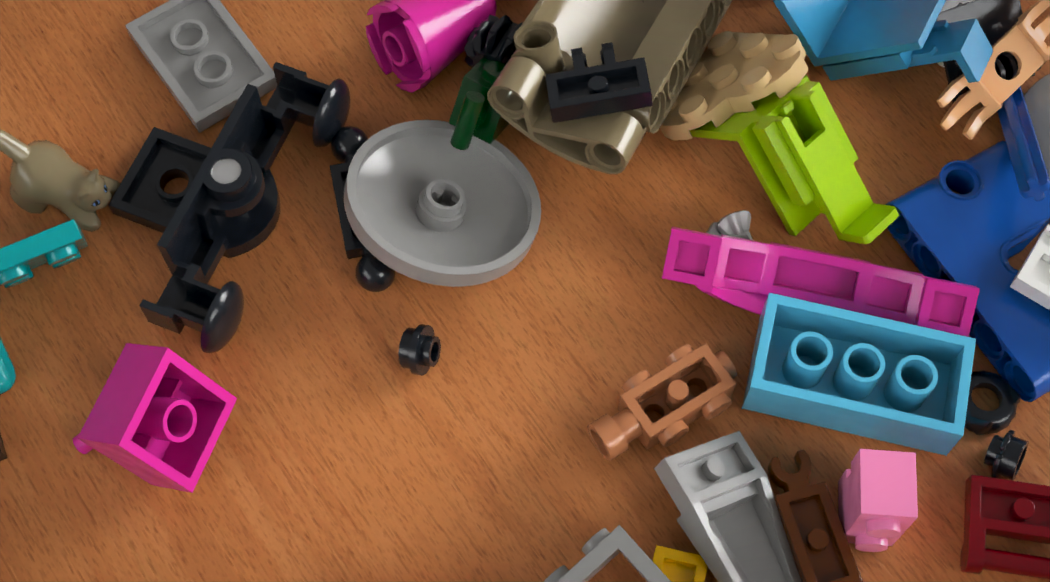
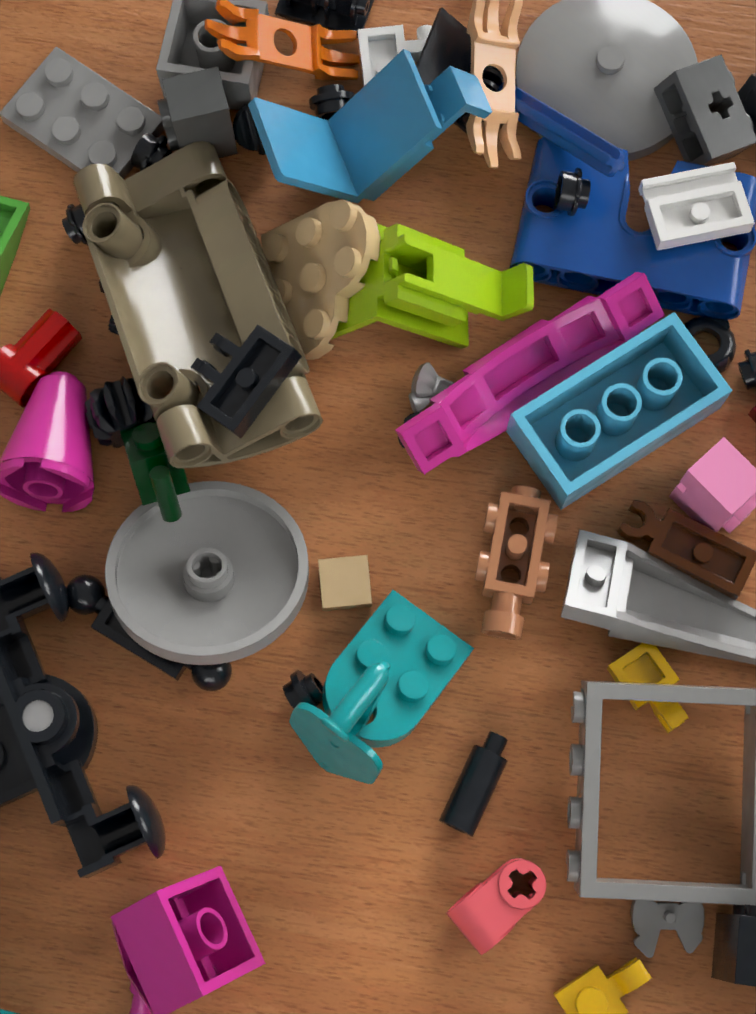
camera: 45 degrees left, 10 degrees up
(468, 530) = (475, 785): none -> black cylinder
(495, 387) = (387, 670): none -> teal plate
(530, 306) = (345, 583): none -> tan tile
(983, 187) = (571, 192): none -> black plate

